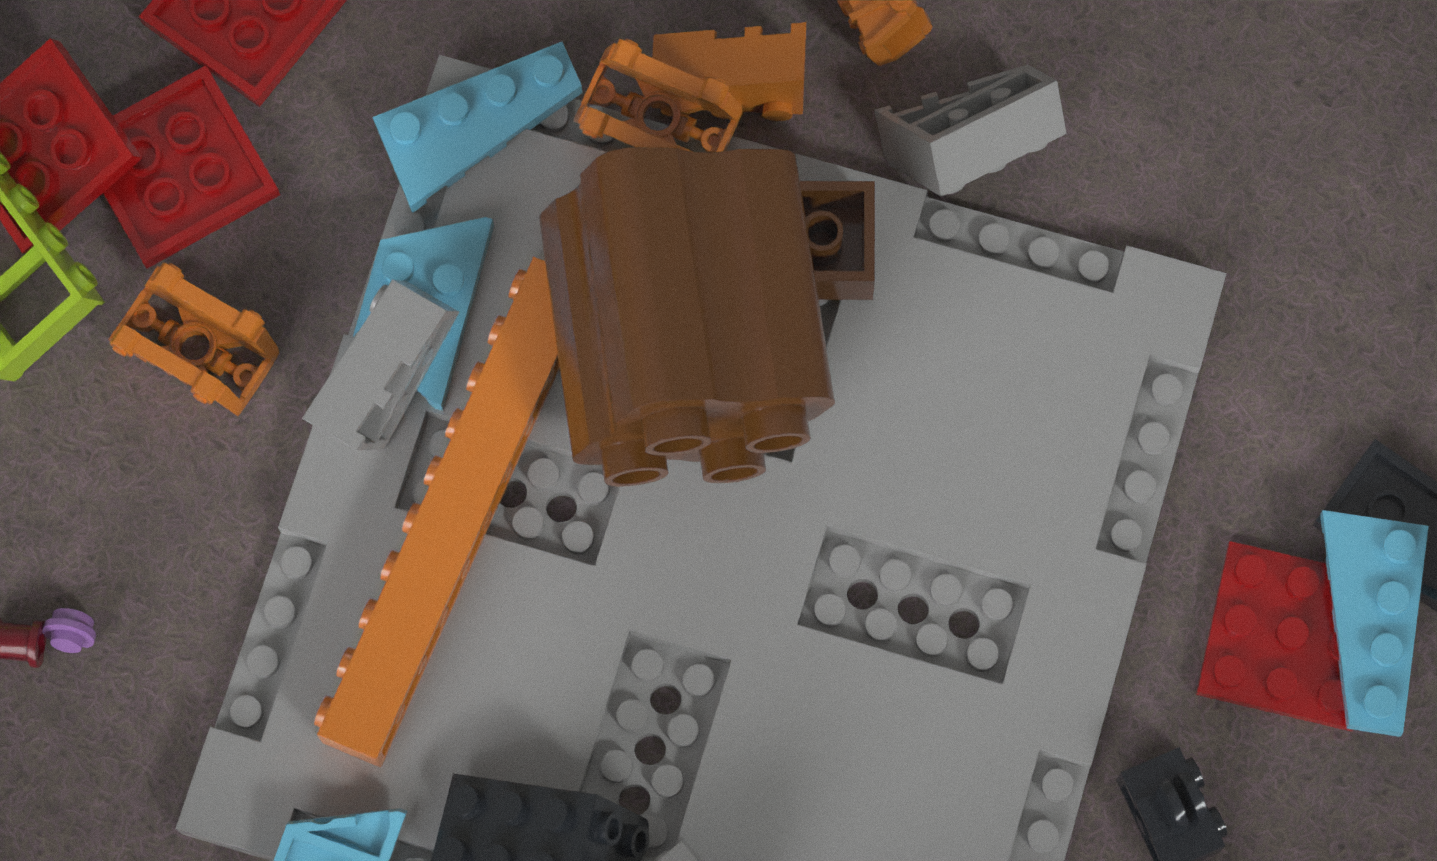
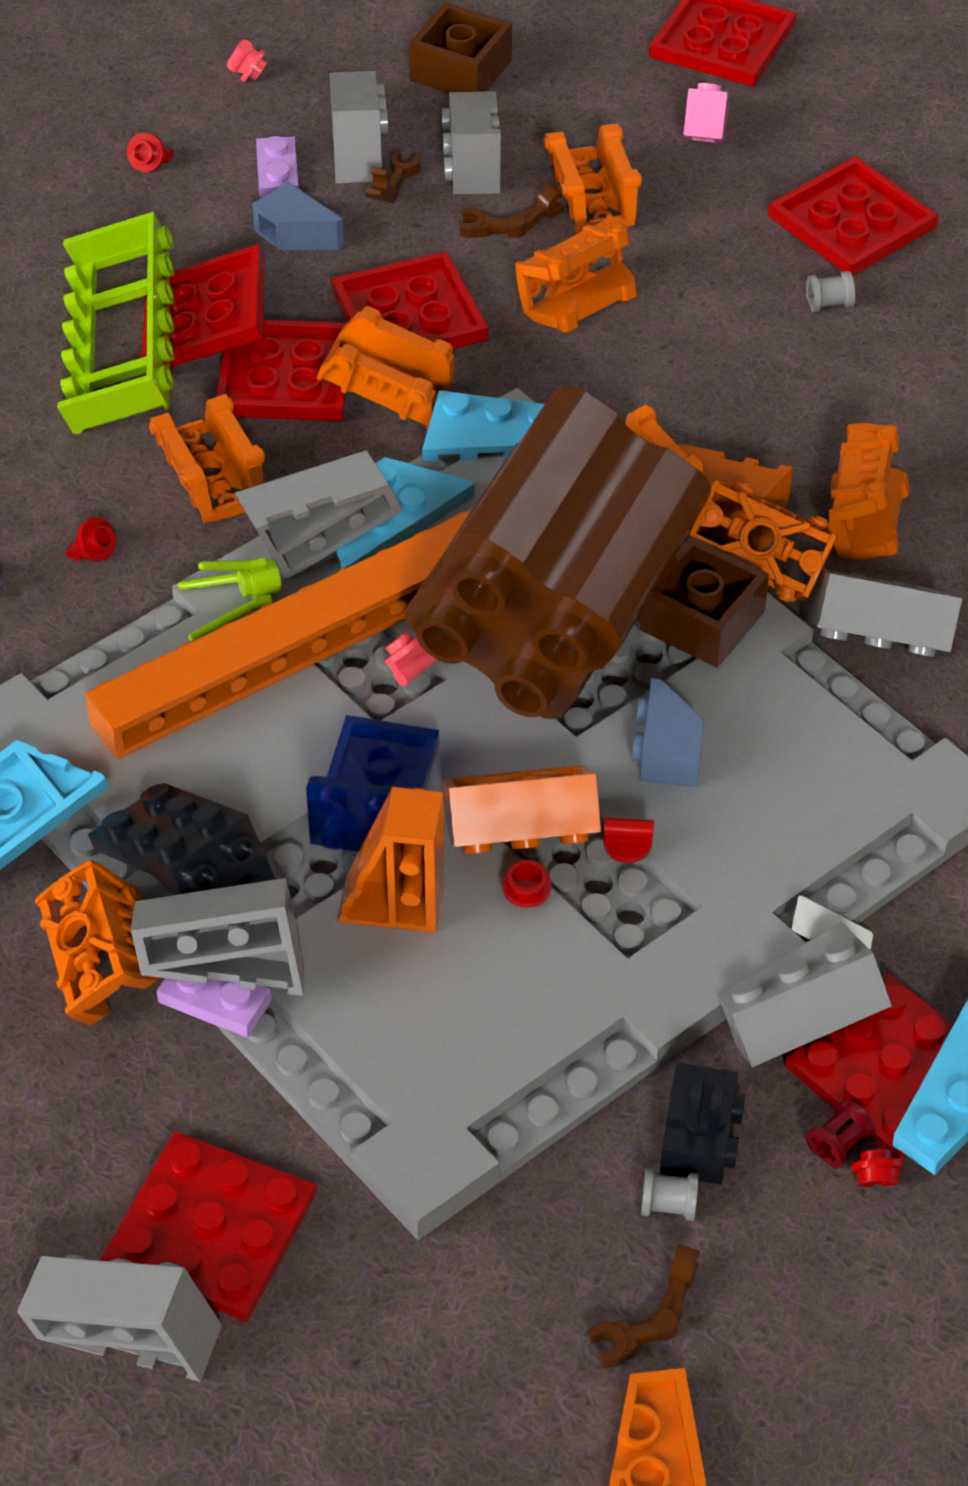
camera: 30 degrees right, 25 degrees down
(146, 511) = (94, 541): none -> red plate
(293, 92) = (389, 365): none -> orange piece
(363, 477) = (255, 579): none -> lime plant
(574, 480) = (407, 658): none -> coral plate
(656, 652) = (363, 770): none -> clear blue bracket
(756, 747) = (399, 866): none -> orange wedge
(804, 585) = (521, 807): none -> orange slope
(842, 104) = (782, 522): none -> orange piece
(866, 669) = (526, 884): none -> red plate
(890, 417) = (671, 738): none -> sand blue slope
(925, 558) = (628, 838): none -> red plate
(1157, 532) = (814, 919): none -> white sticker
(1184, 624) = (805, 996): none -> light grey wedge
(1293, 741) = (840, 1133): none -> dark red bush
(1346, 758) = (877, 1168): none -> red plate

